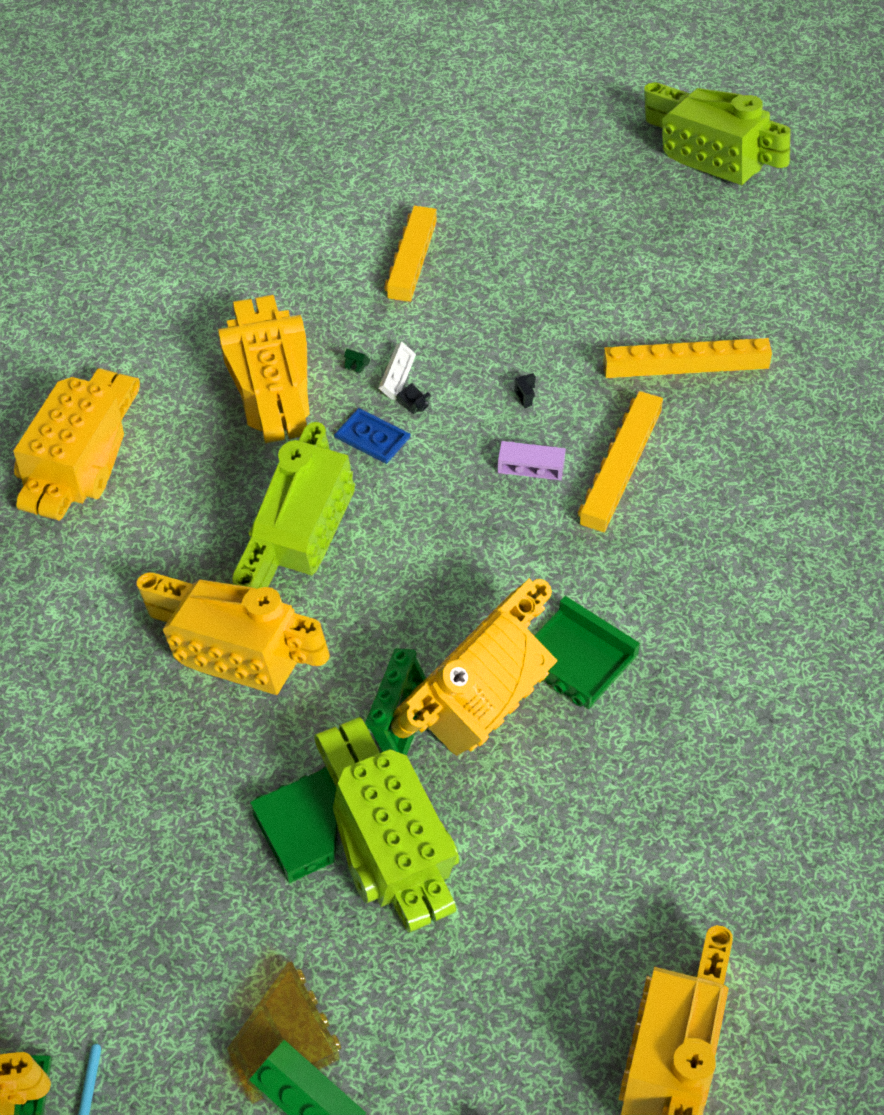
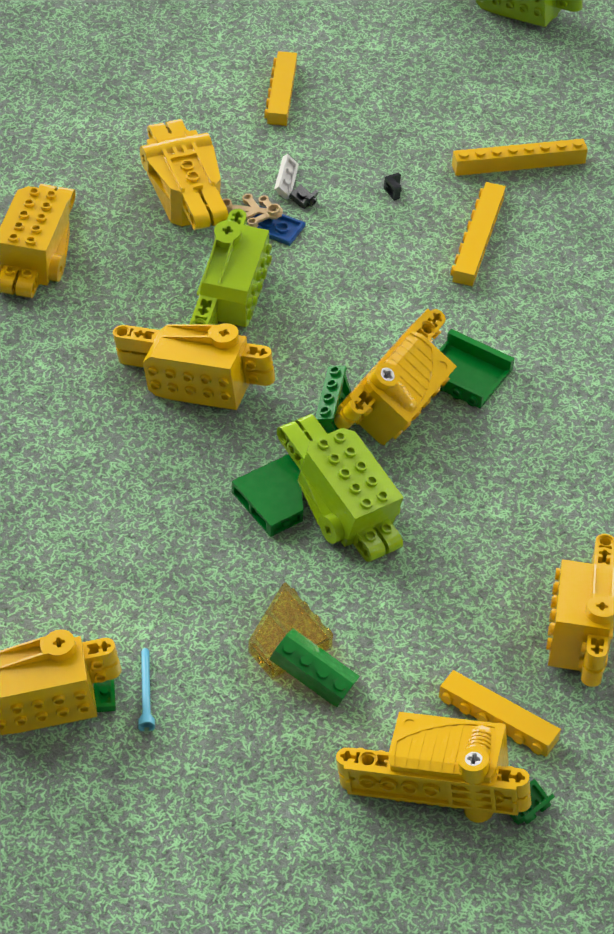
camera: 10 degrees left, 5 degrees down
(353, 357) = (253, 168): dark green tile -> none
(370, 418) = (271, 211): none -> tan plant
(531, 460) = (407, 236): lavender brick -> none

